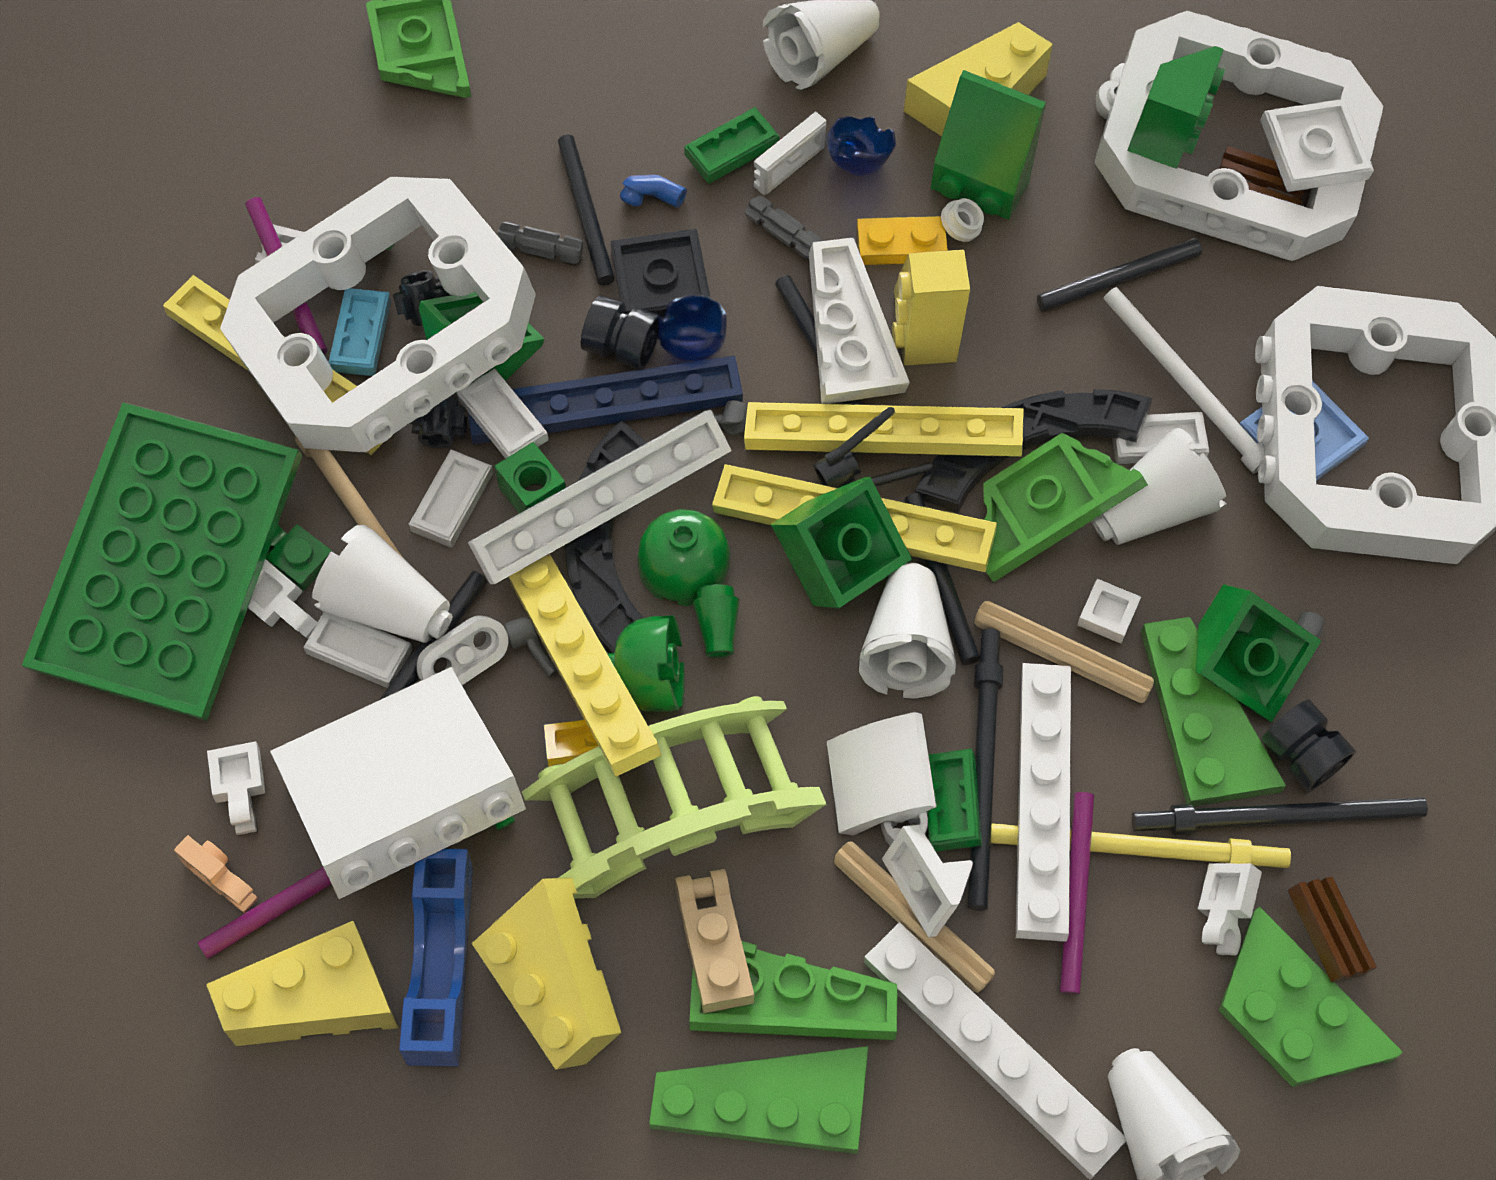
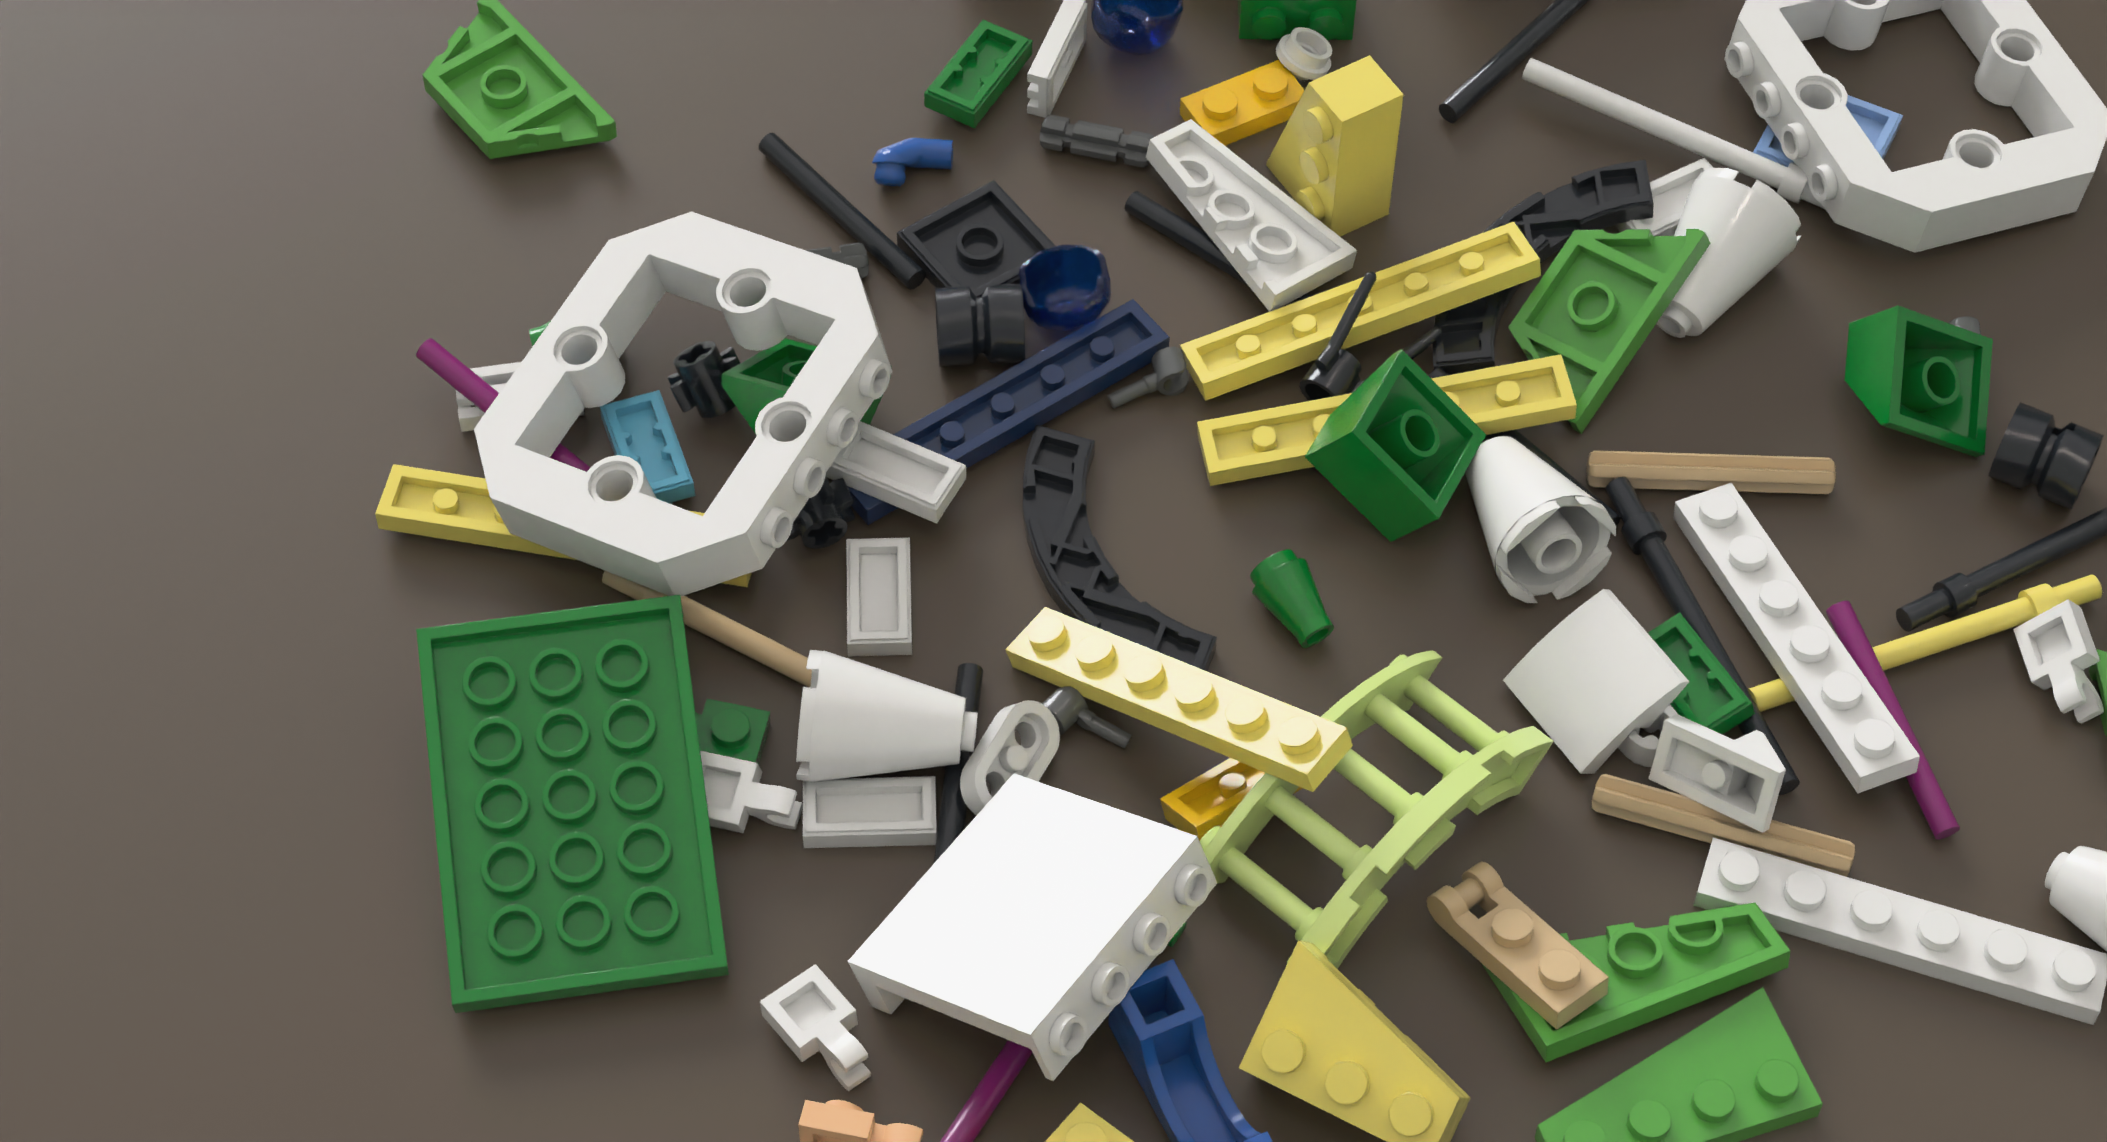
camera: 25 degrees left, 10 degrees down
(527, 468) = (971, 516): green brick -> none
(599, 497) = (1073, 514): white plate -> none
(650, 663) = (1251, 652): green cylinder -> none
(682, 554) = (1206, 545): green cylinder -> none
(1109, 611) = (1736, 407): white plate -> none
(1207, 728) = (1916, 487): bright green wing -> none

